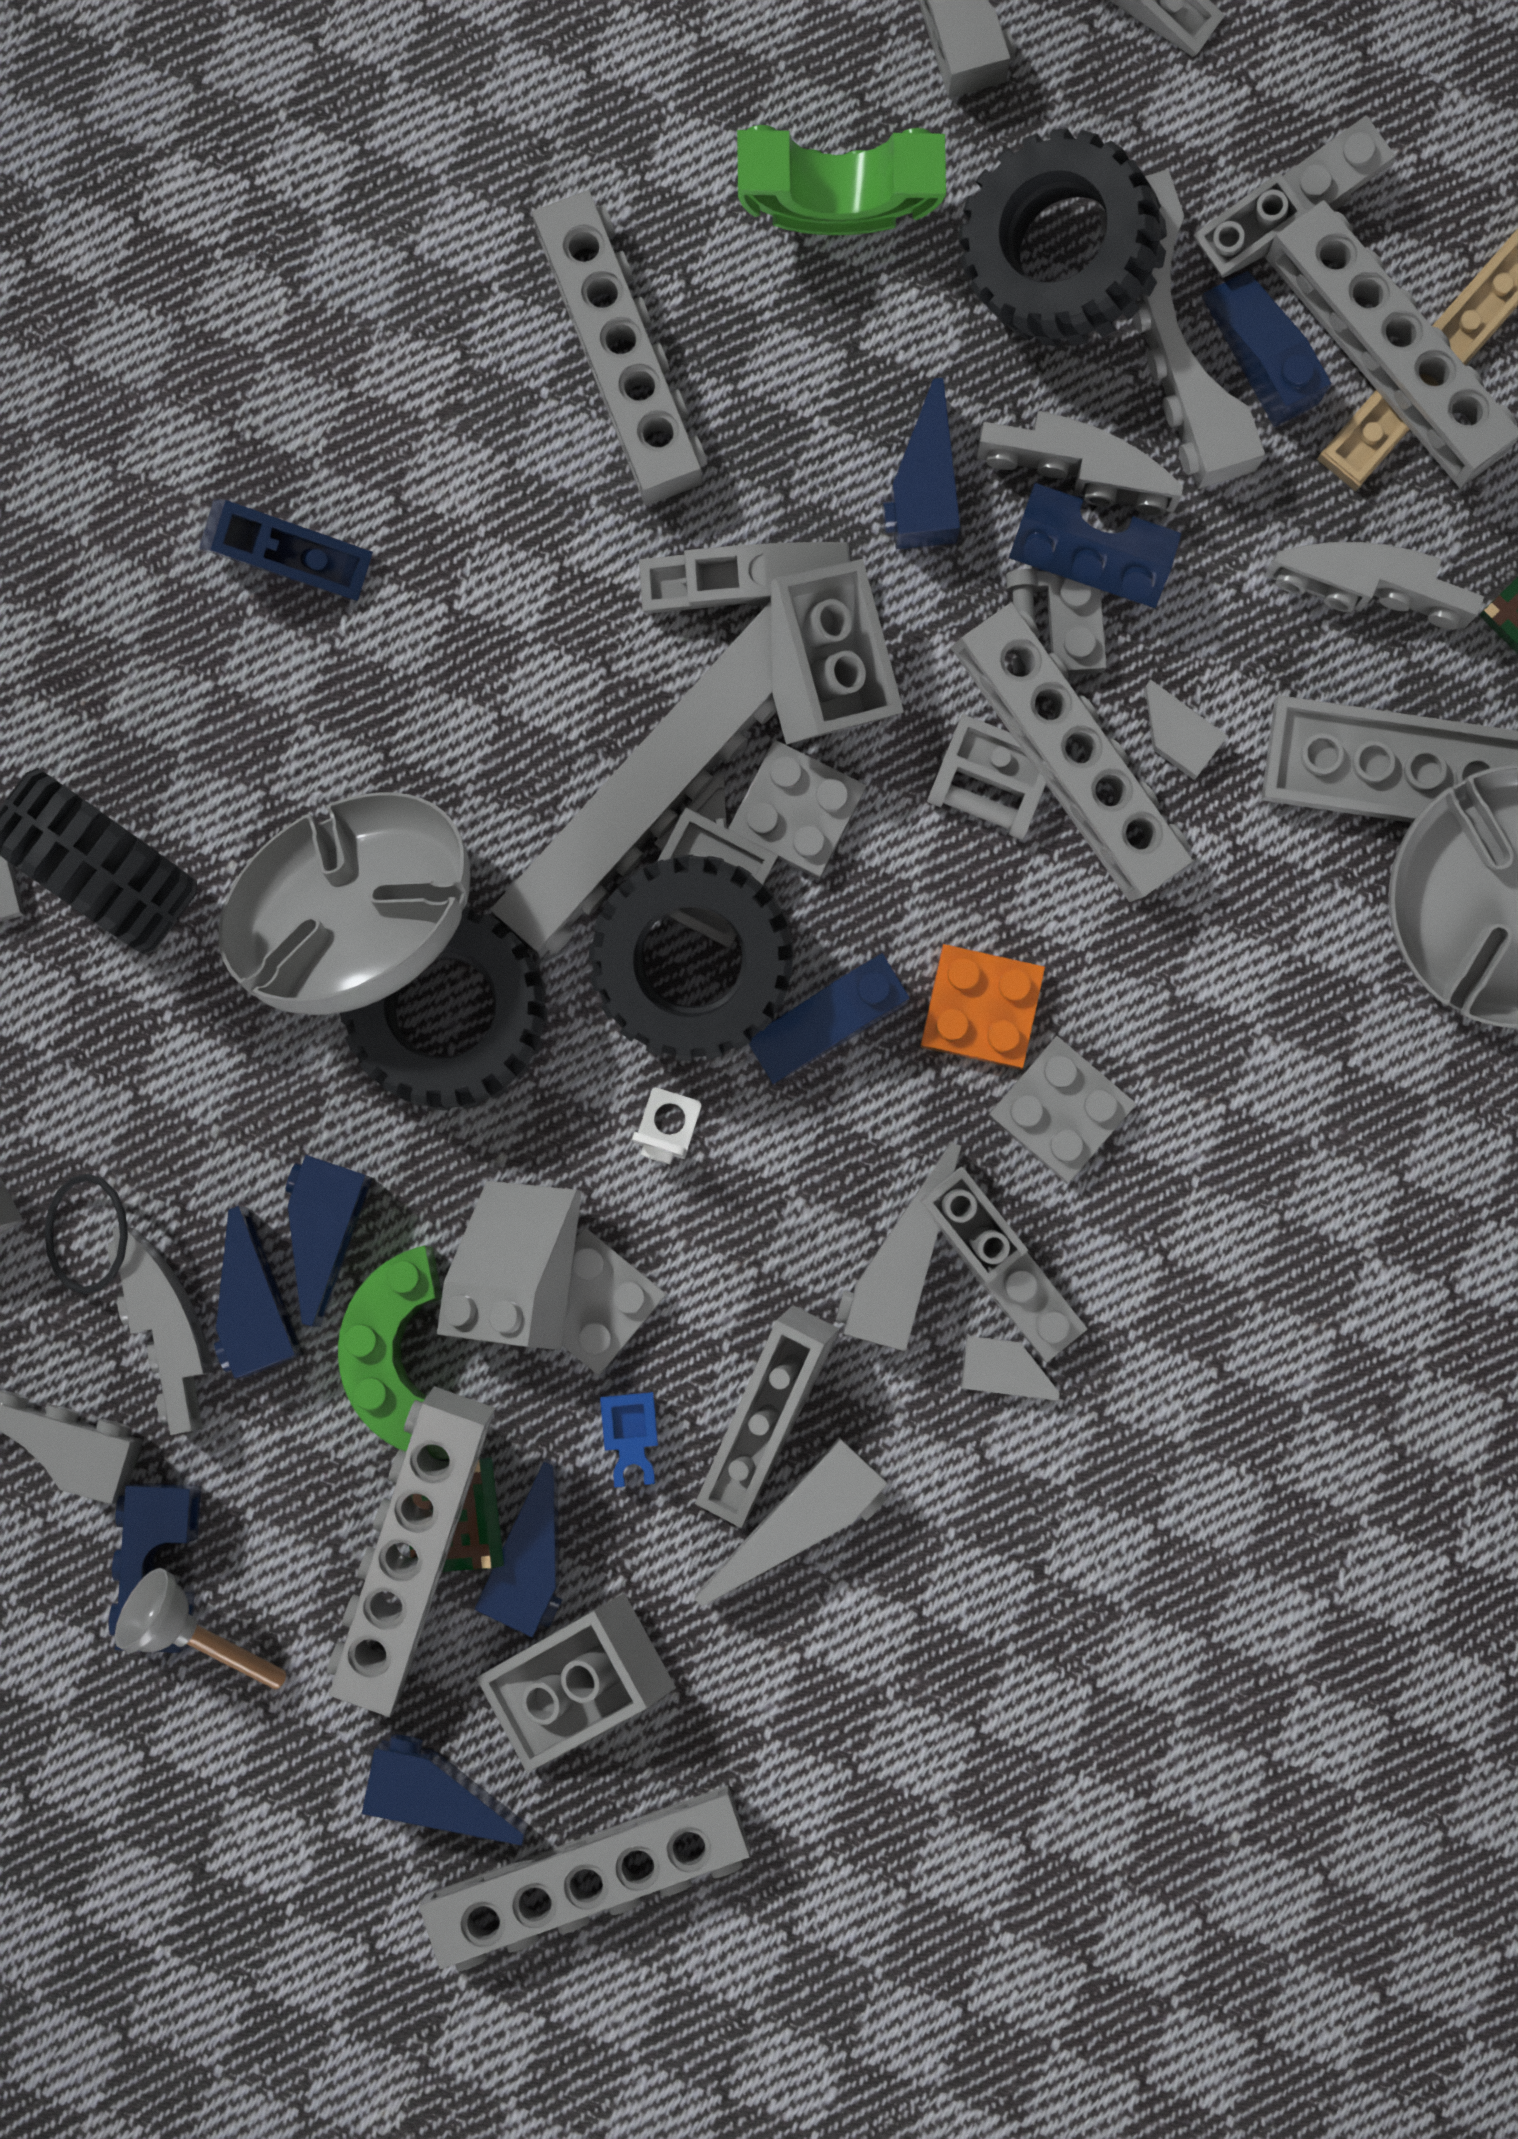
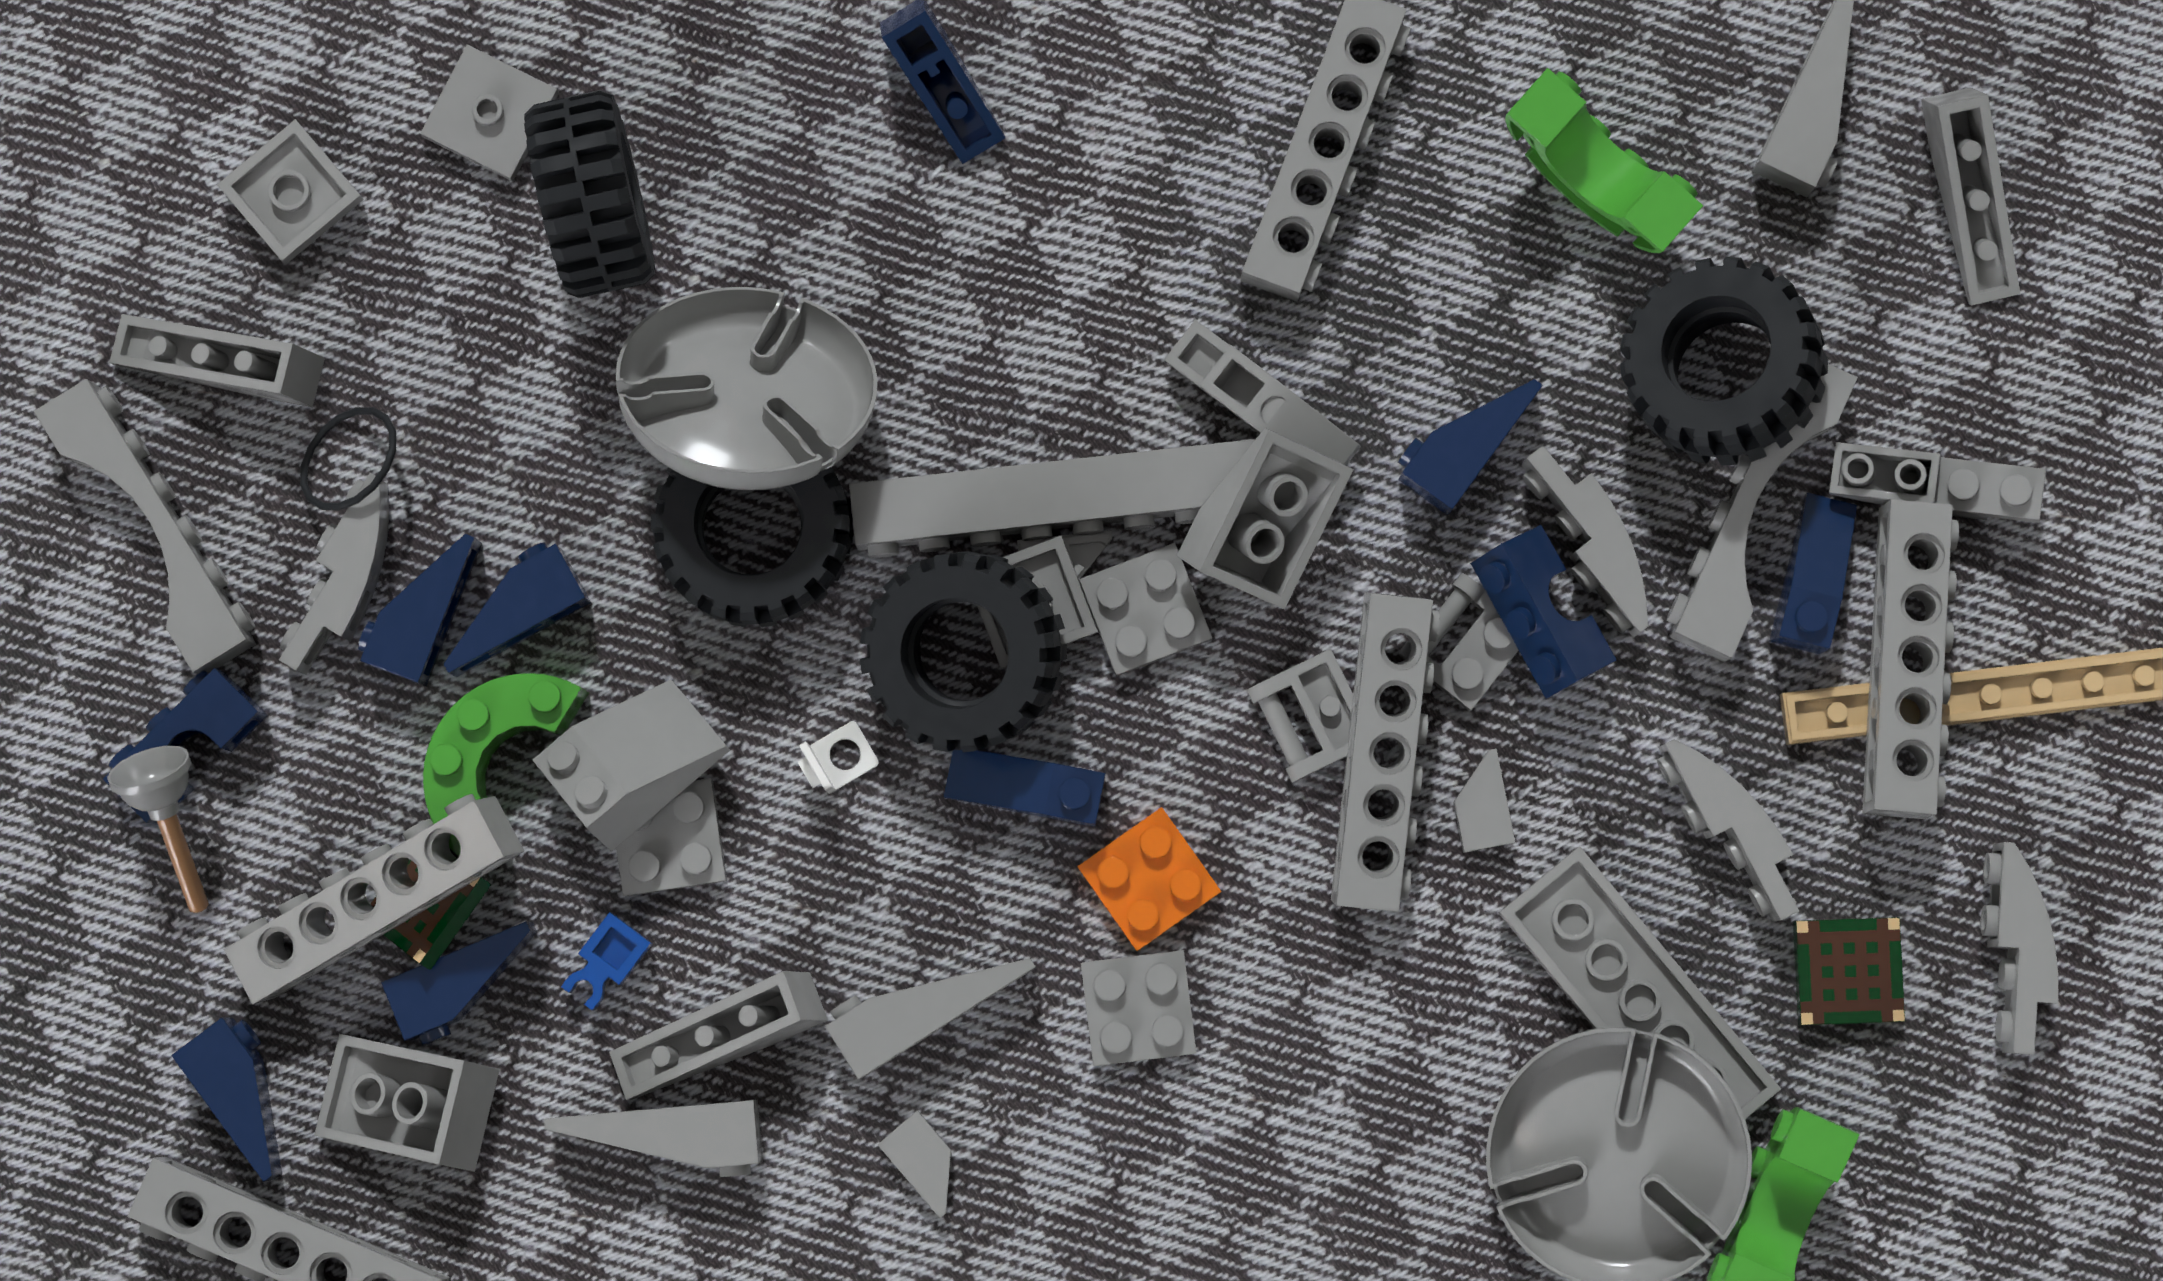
camera: 45 degrees right, 0 degrees up
(1002, 1264) = (986, 1081): light grey slope -> none

